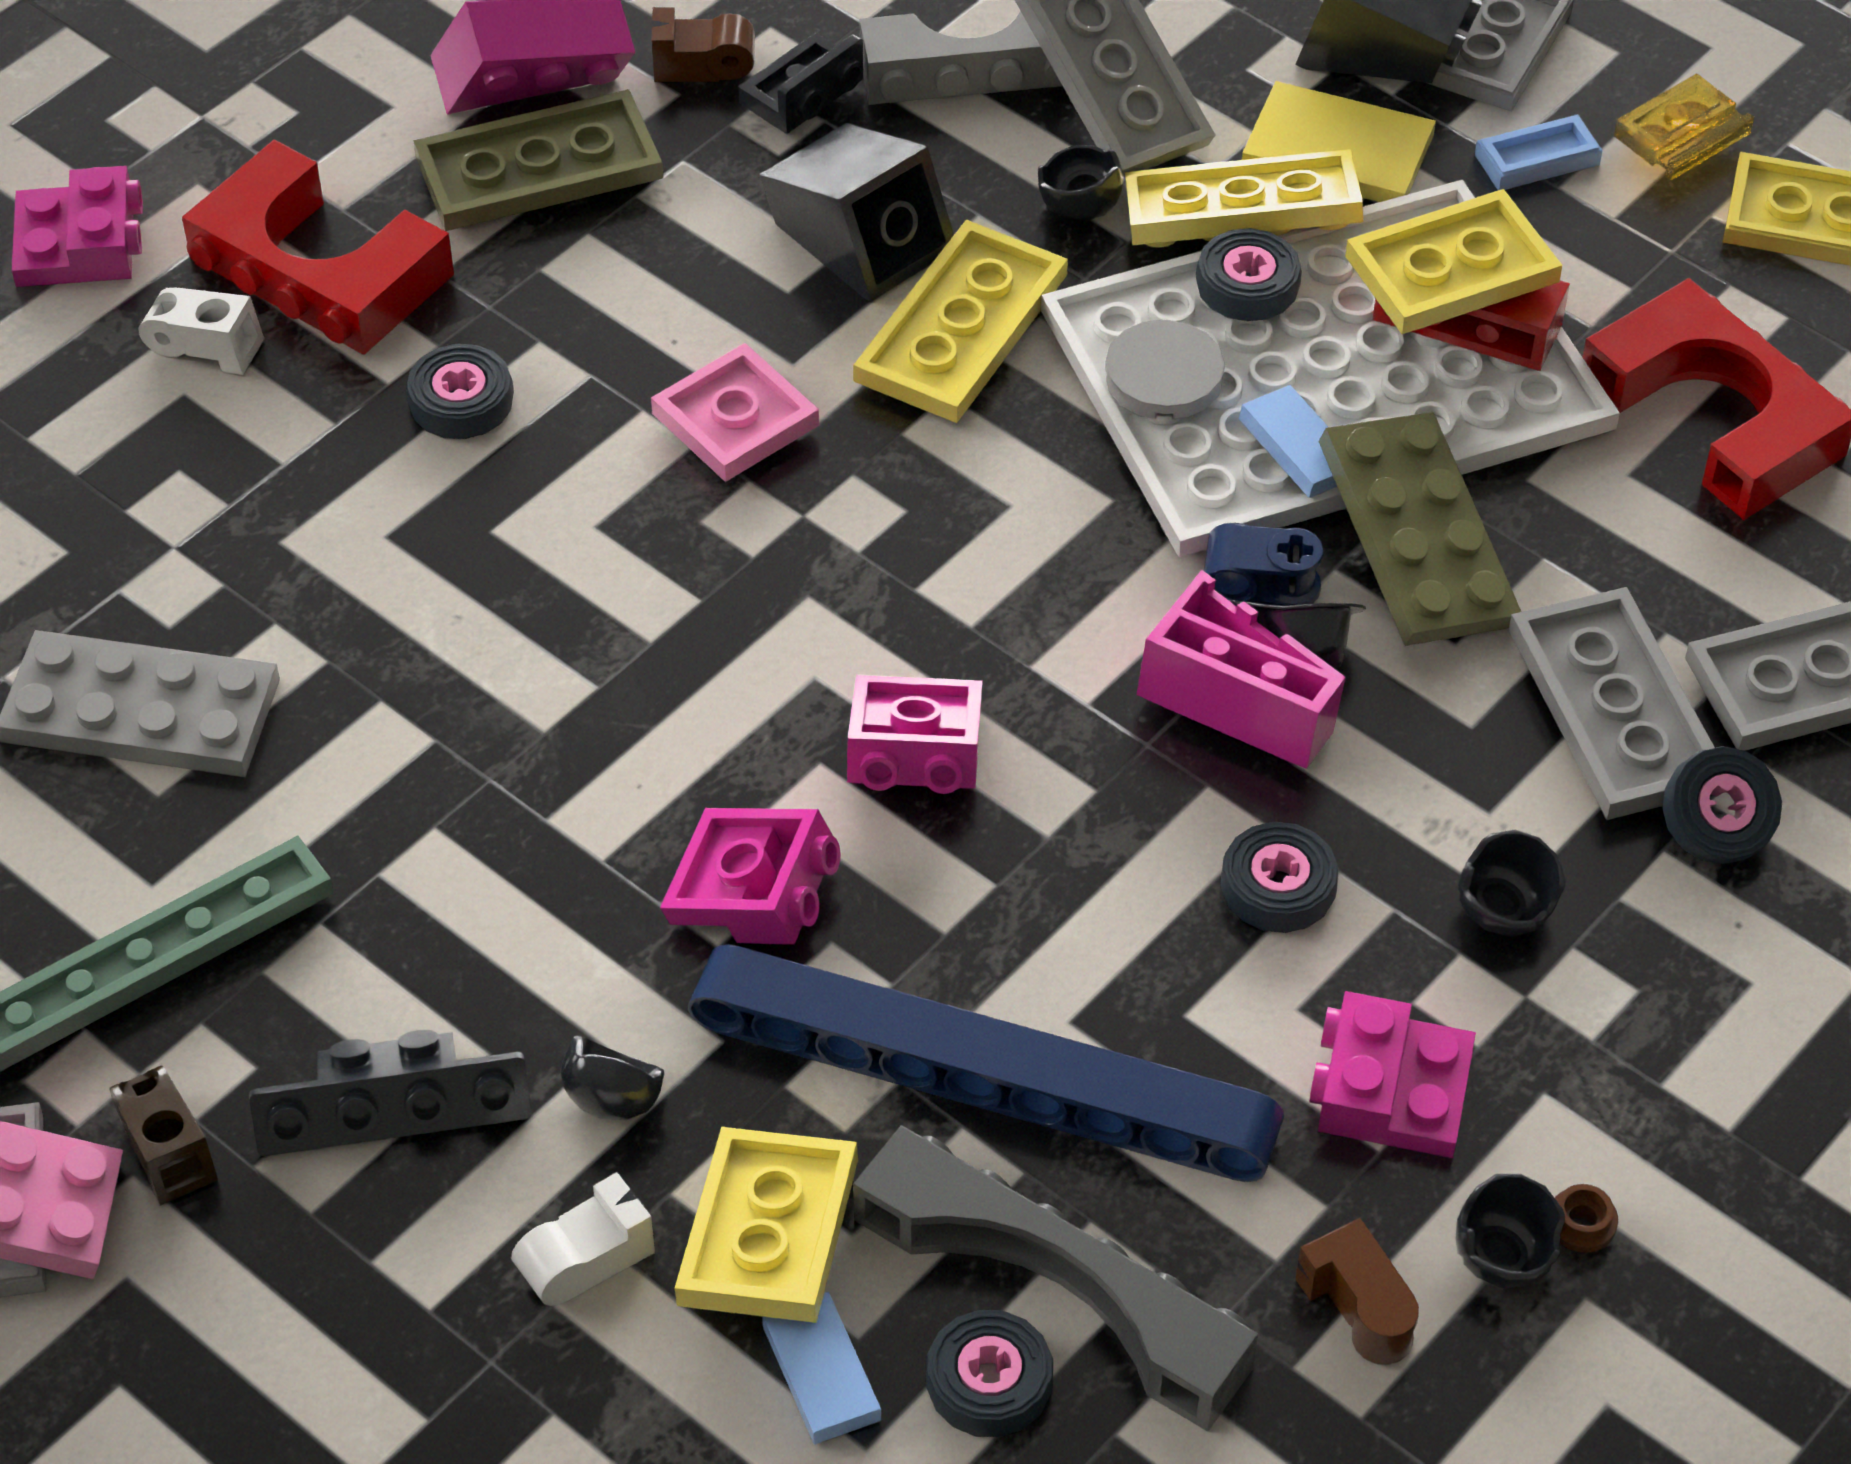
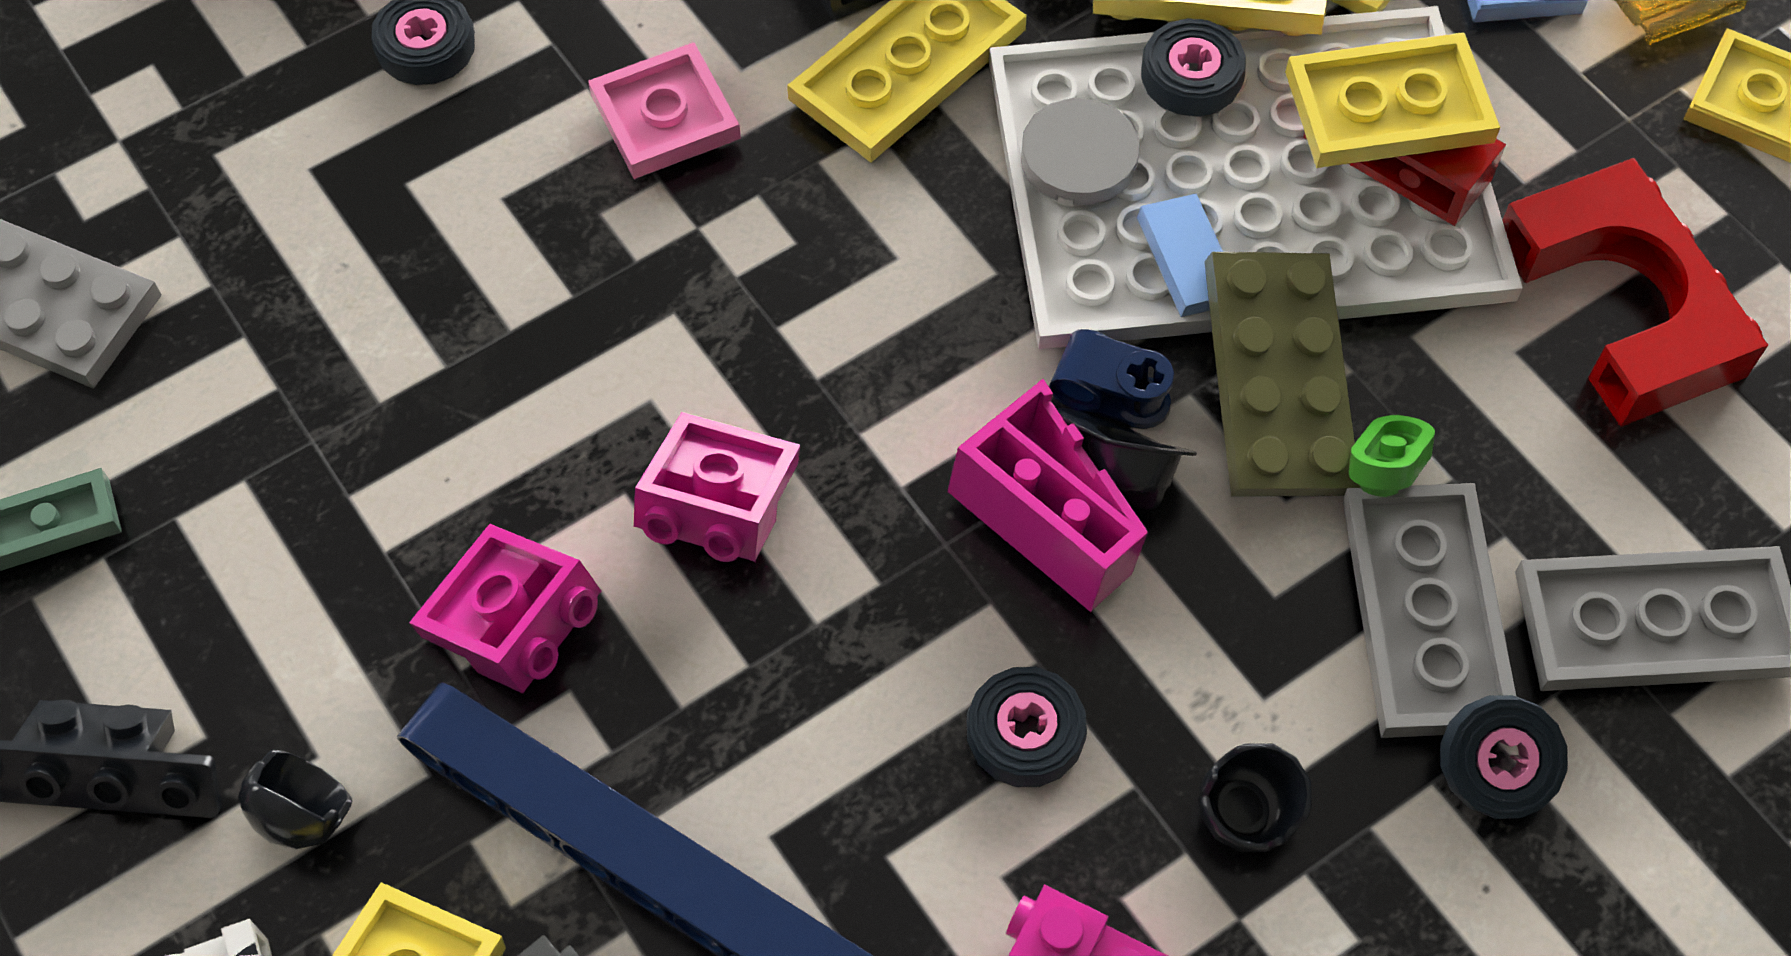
camera: 15 degrees right, 10 degrees up
(1543, 577) = (1391, 454): none -> bright green plate

